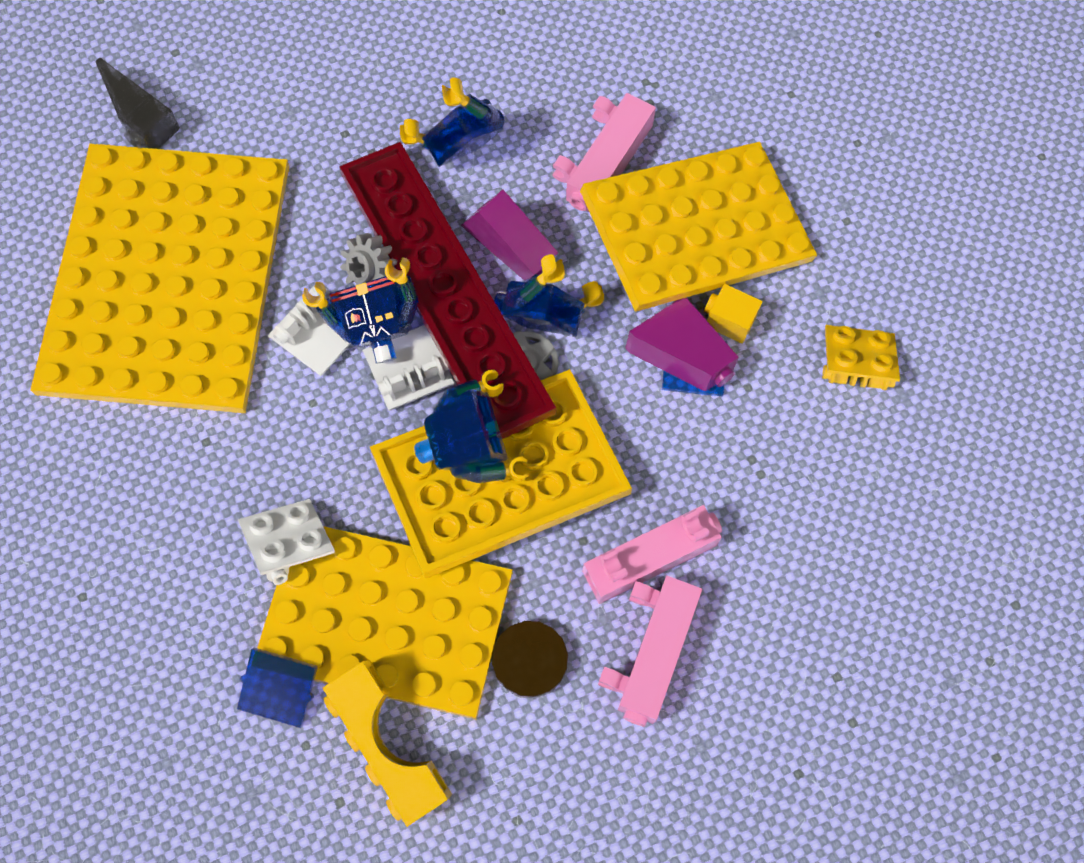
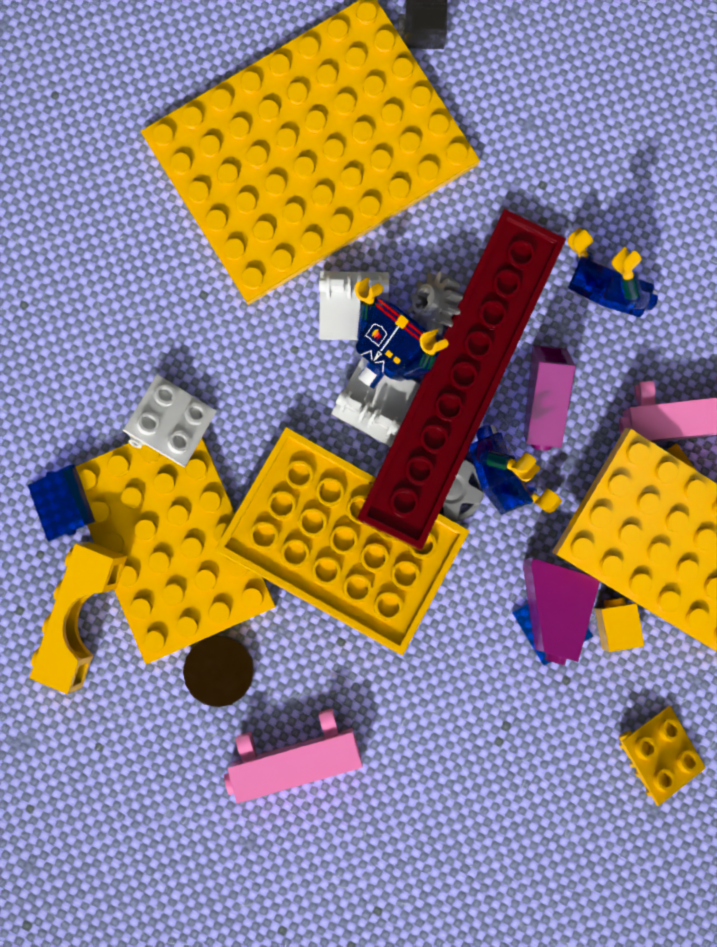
camera: 55 degrees right, 15 degrees up
(466, 434) = (342, 500): clear blue torso -> none
(652, 553) = (367, 706): bright pink brick -> none

